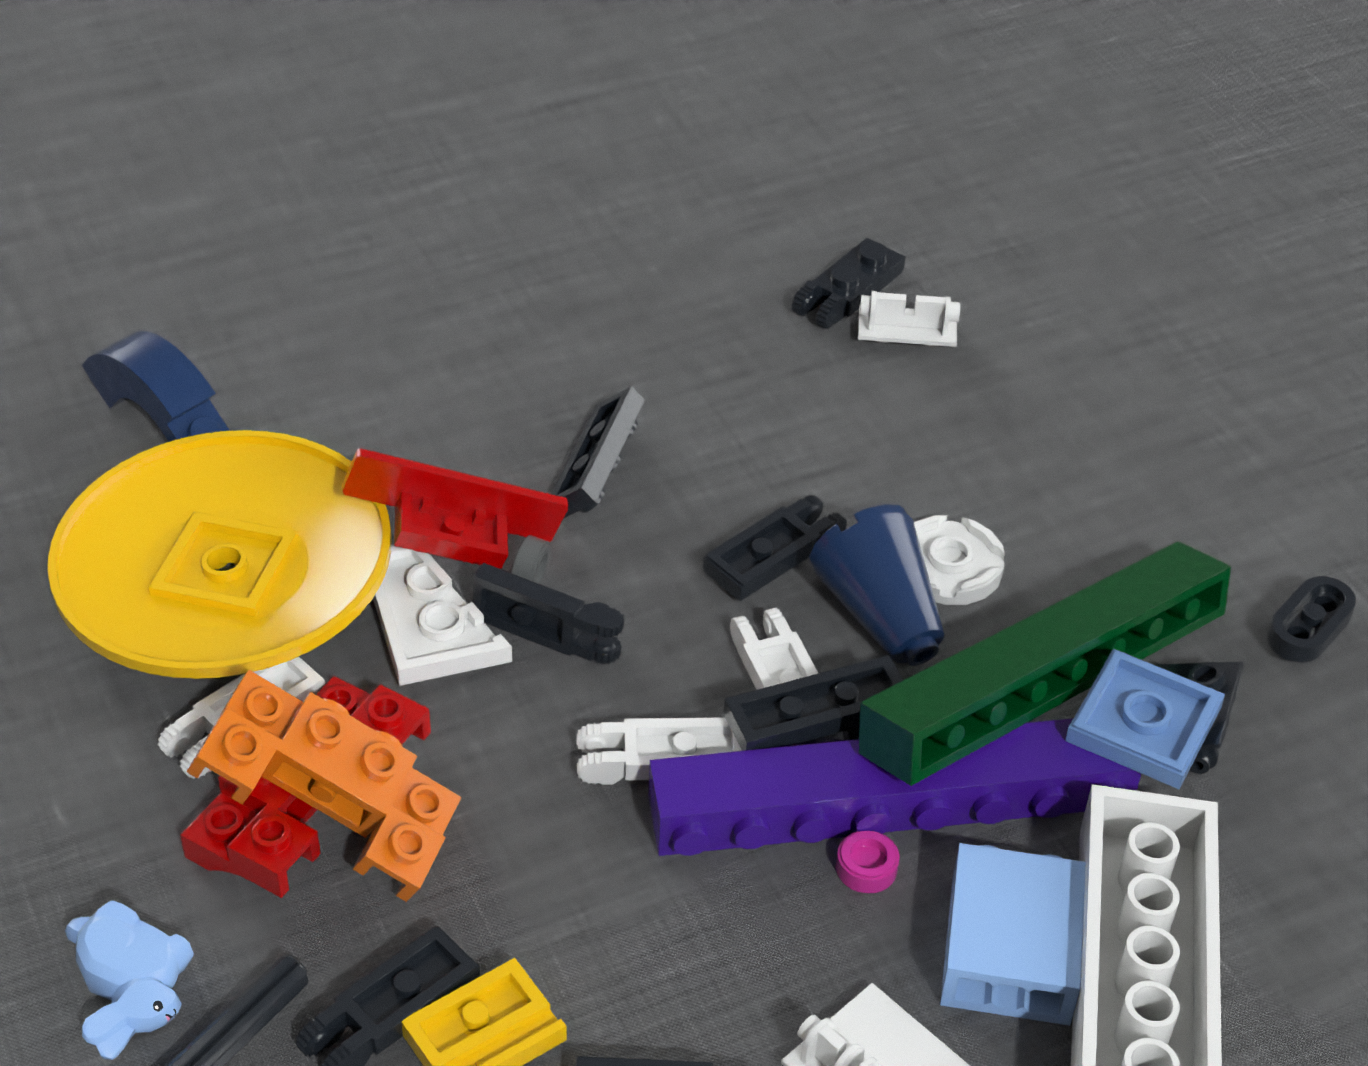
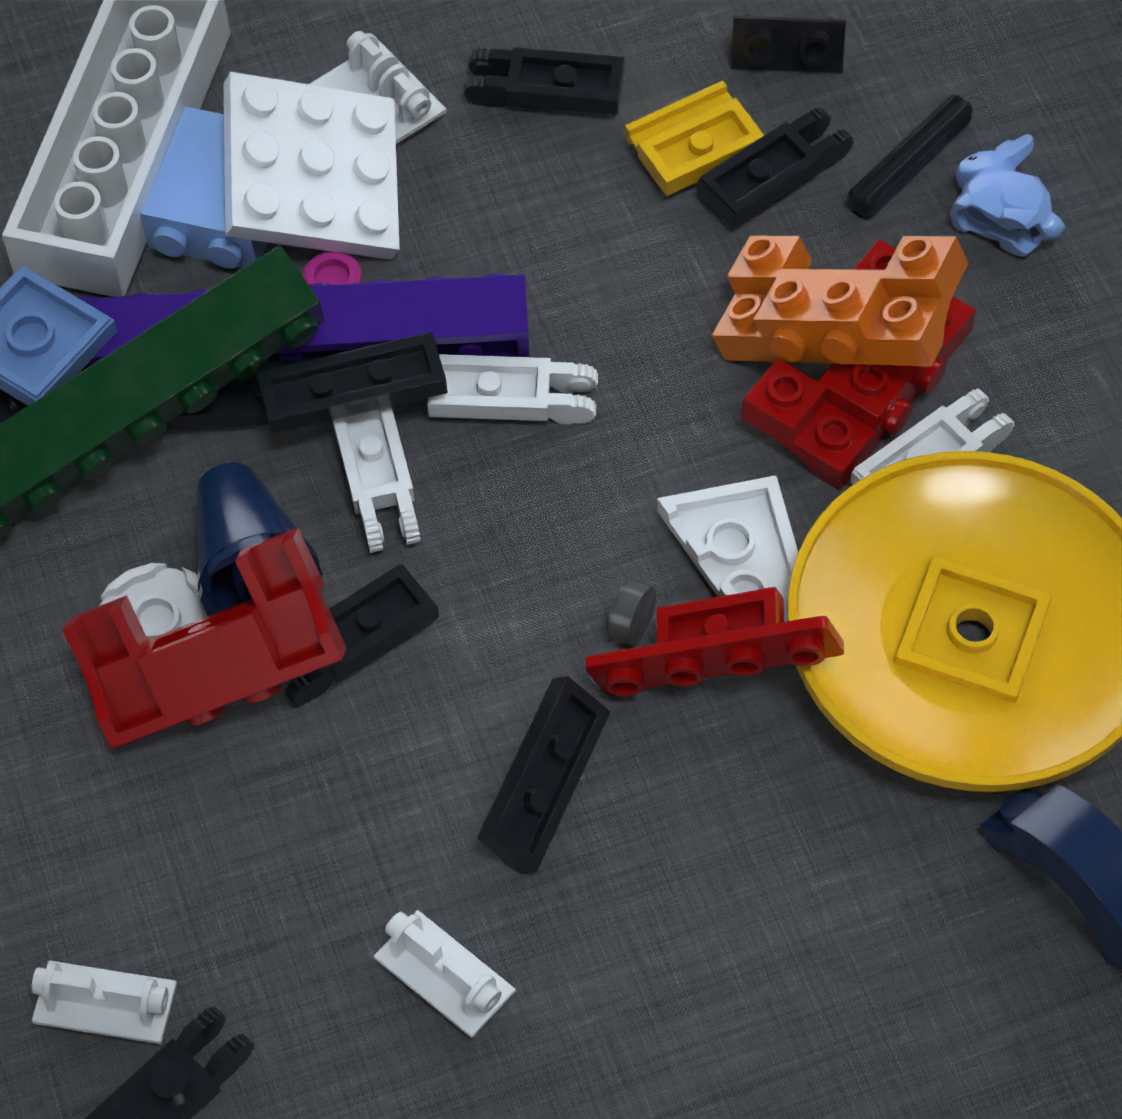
camera: 170 degrees left, 15 degrees up
(547, 615) = (616, 543): black hinge -> none
(664, 348) = (443, 972): none -> white hinge
(915, 481) = (212, 661): none -> red bracket
(916, 929) = (310, 166): none -> white plate

